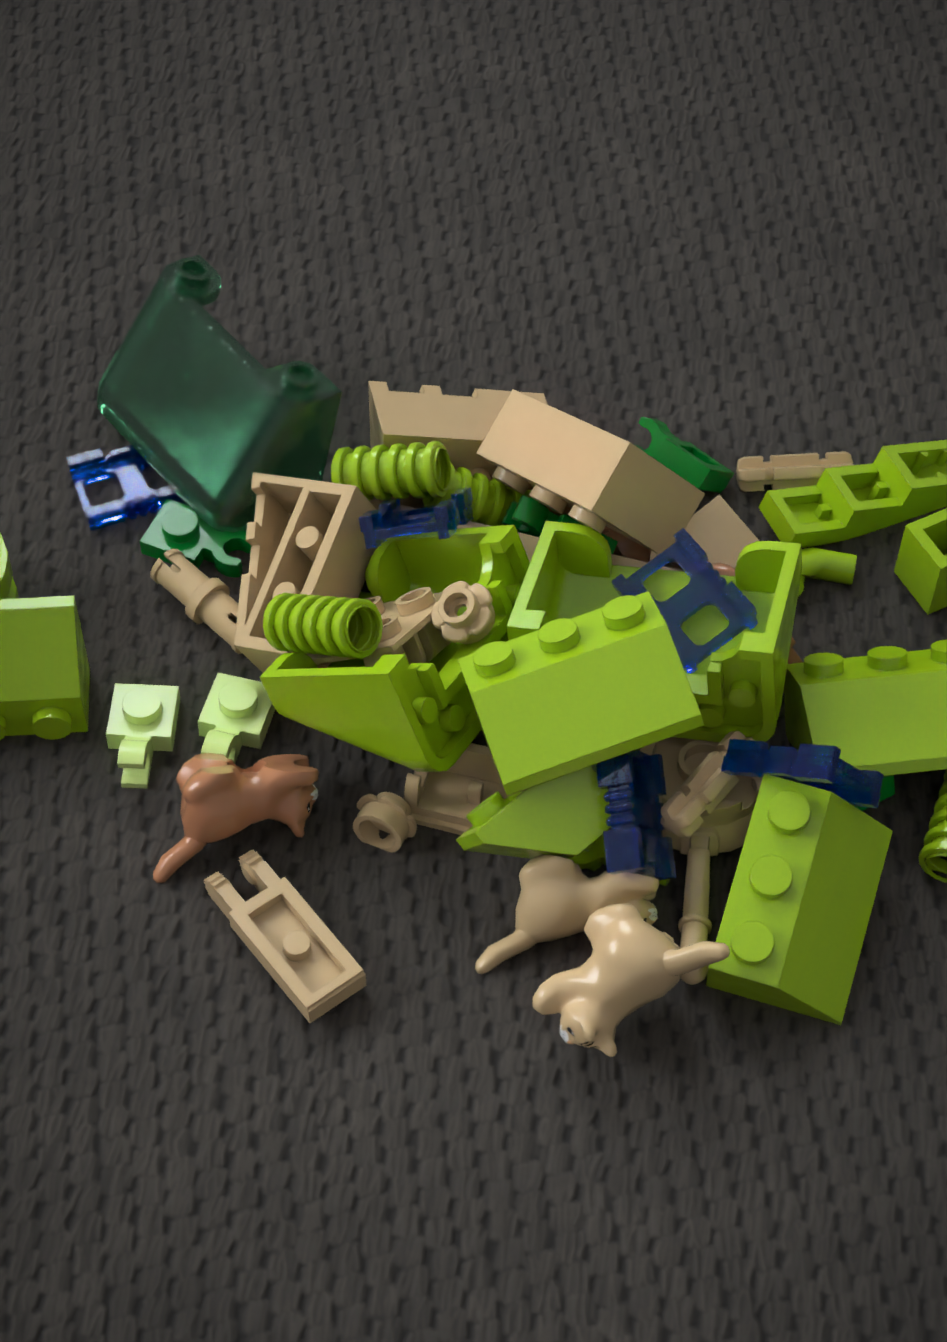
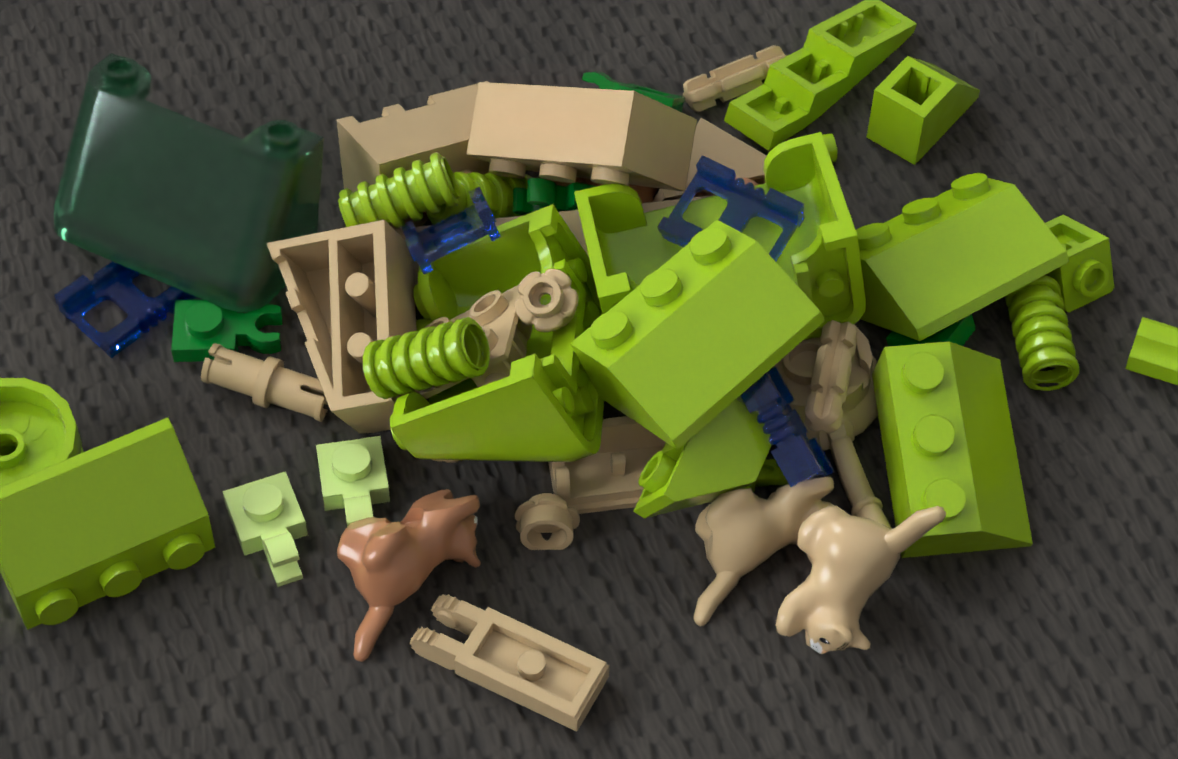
camera: 25 degrees left, 0 degrees up
(811, 765) = (931, 324): clear blue piece -> none

